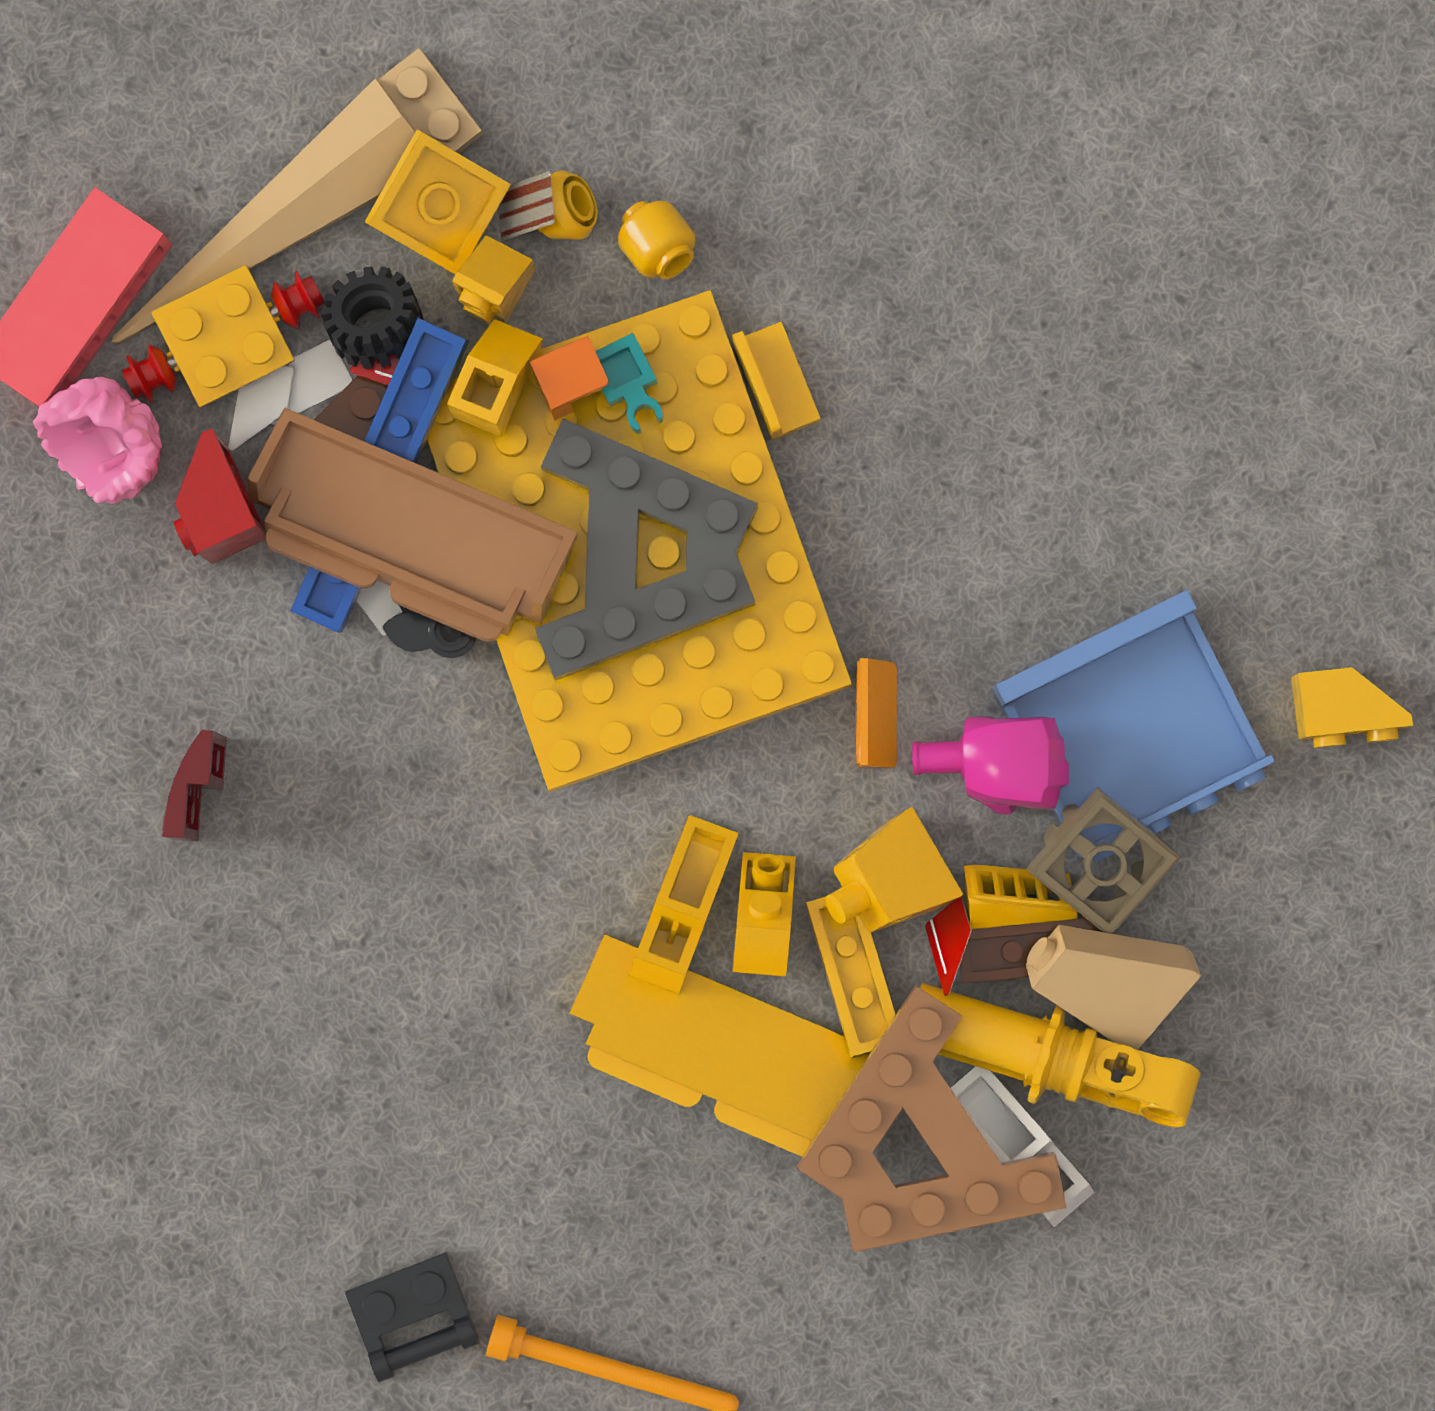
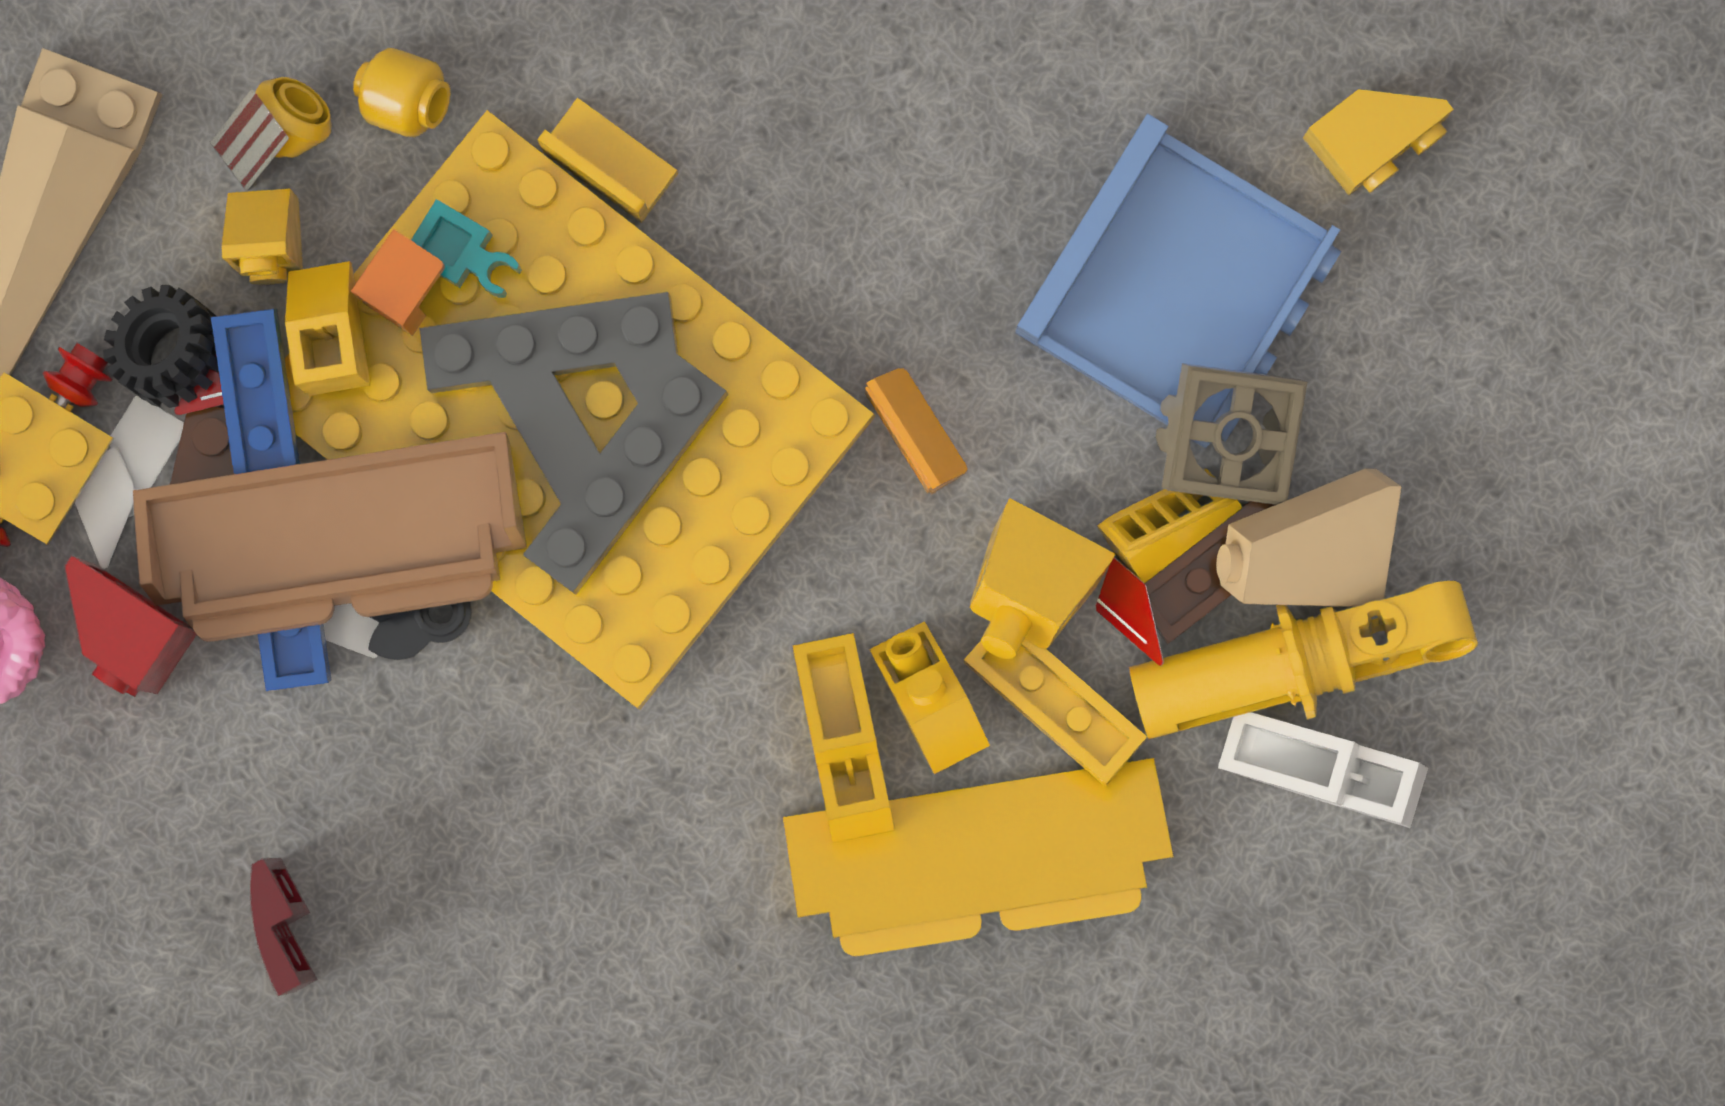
camera: 35 degrees left, 0 degrees up
(437, 202) = (158, 190): yellow plate -> none
(976, 1185) = (1308, 831): medium nougat plate -> none
(1002, 761) = (1071, 397): dark pink piece -> none

